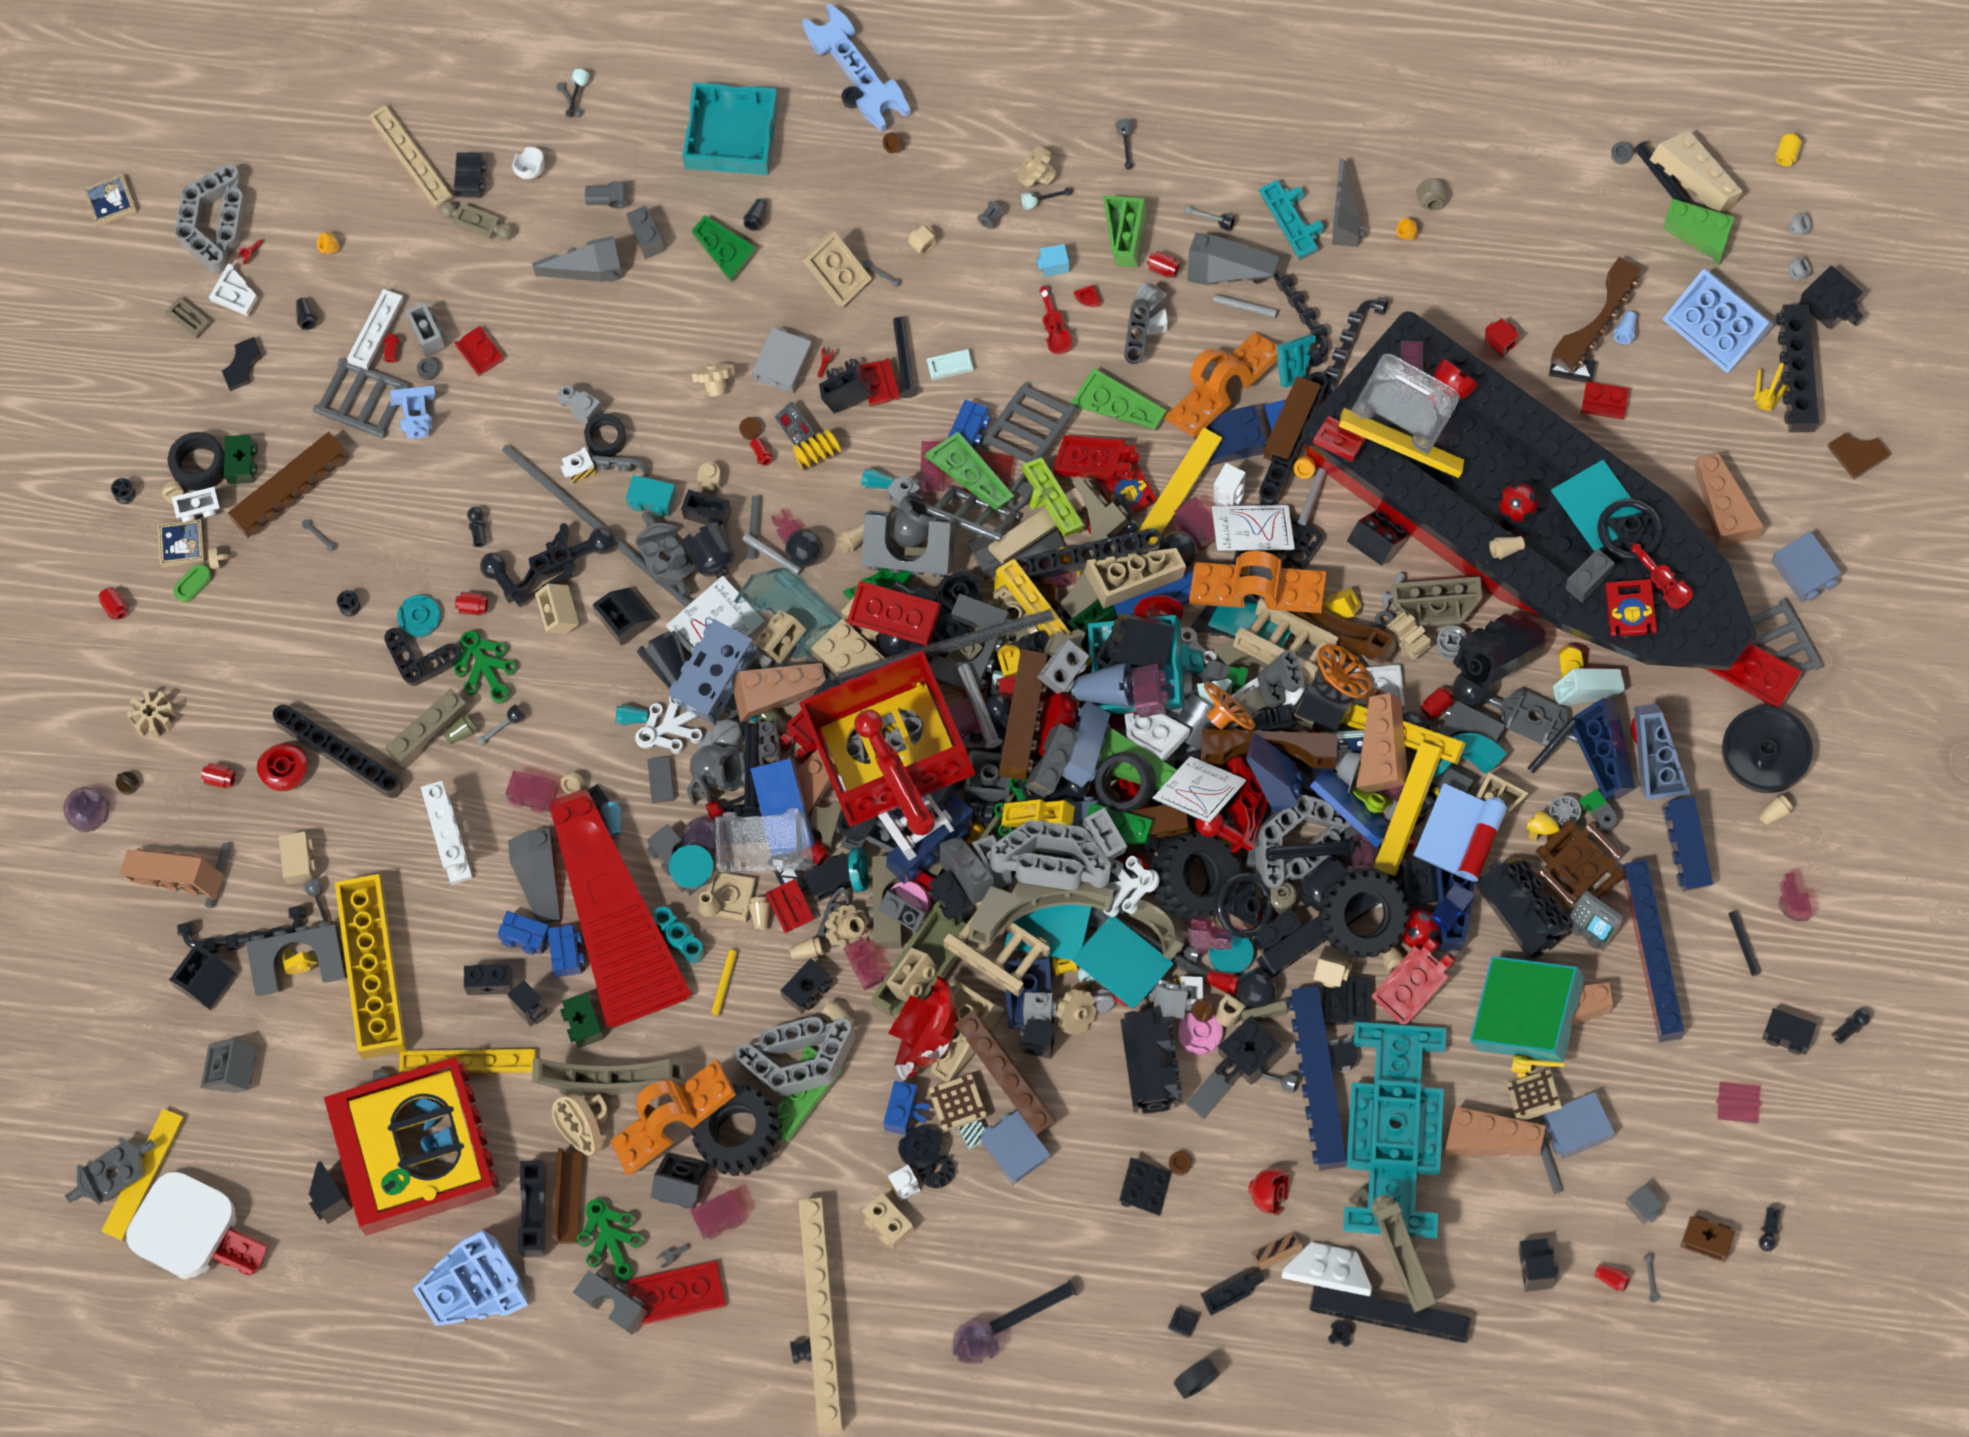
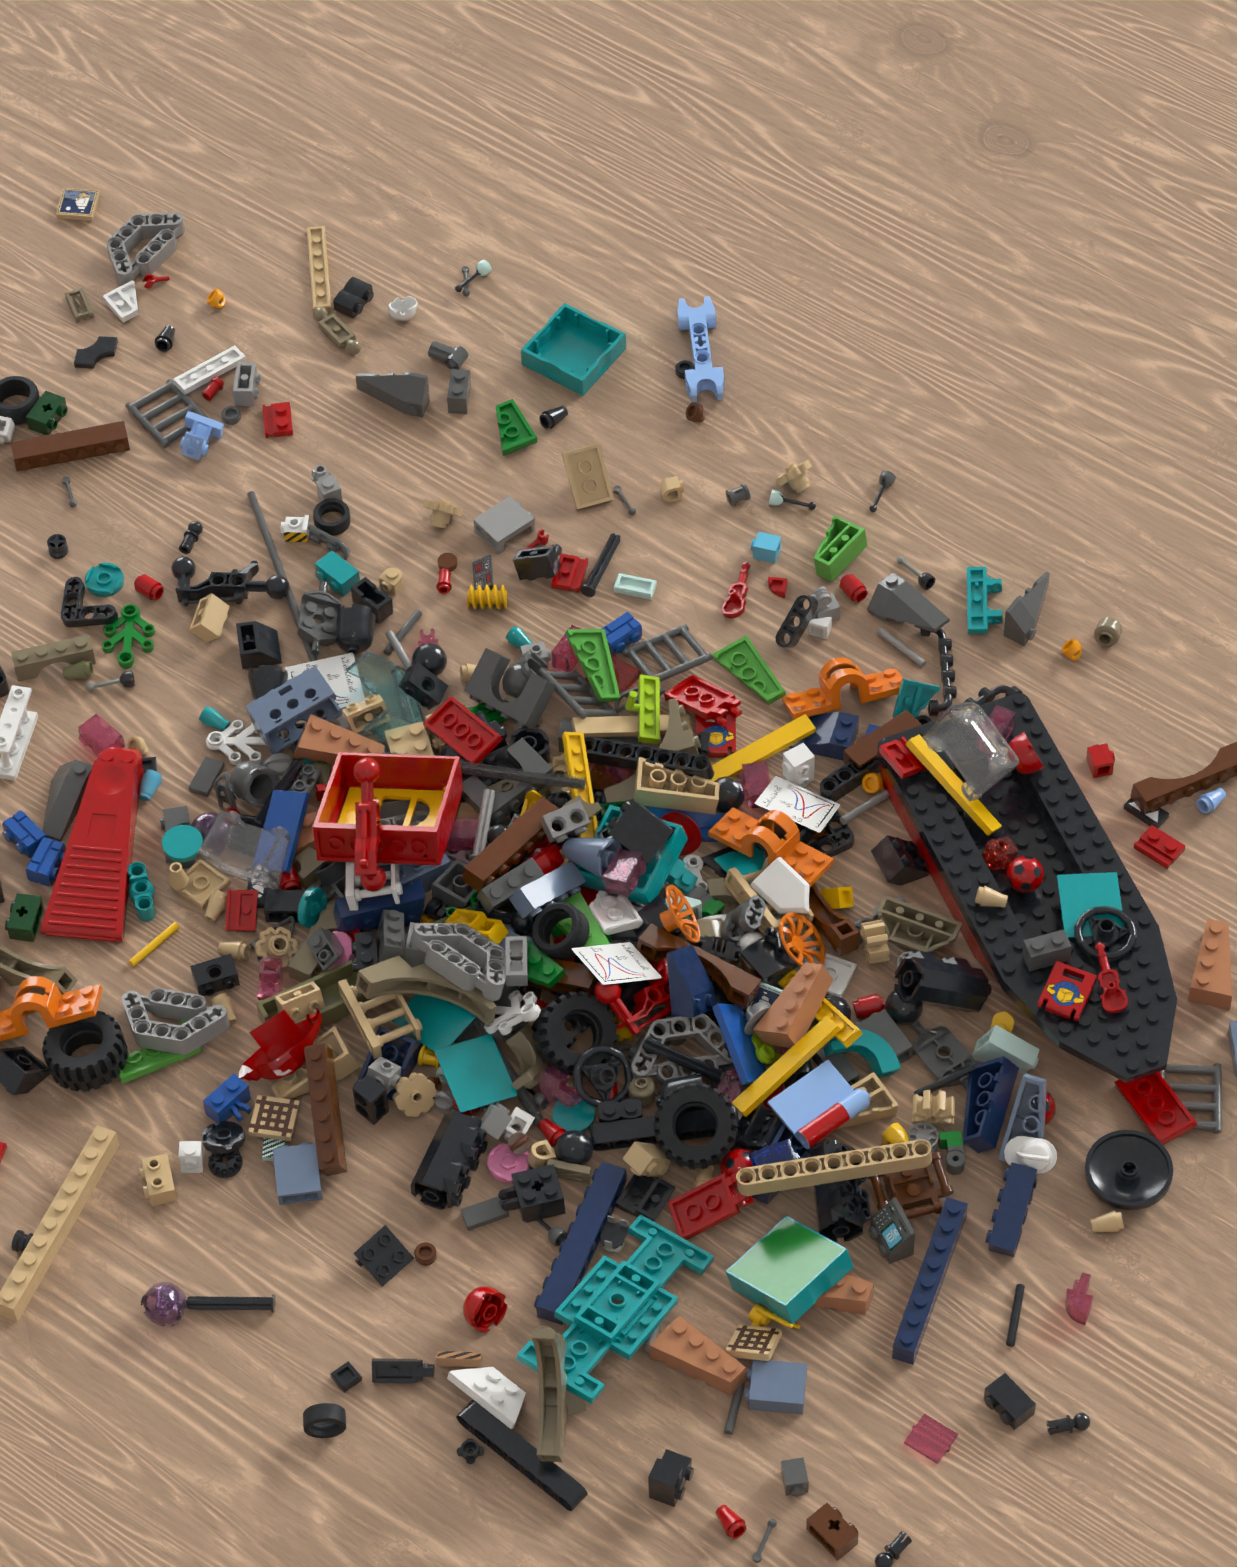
camera: 25 degrees right, 15 degrees down
(717, 1215) = (29, 1109): clear pink brick -> none
(817, 579) = (423, 686): none -> black brick
(1299, 627) = (783, 888): none -> white tile
(1321, 683) = (773, 937): none -> black arm
(1481, 491) = (999, 853): none -> clear red brick
(1525, 883) = (842, 1160): none -> tan beam
(1560, 780) = (933, 1109): none -> tan gear
(1676, 782) = (1031, 1153): none -> white piece

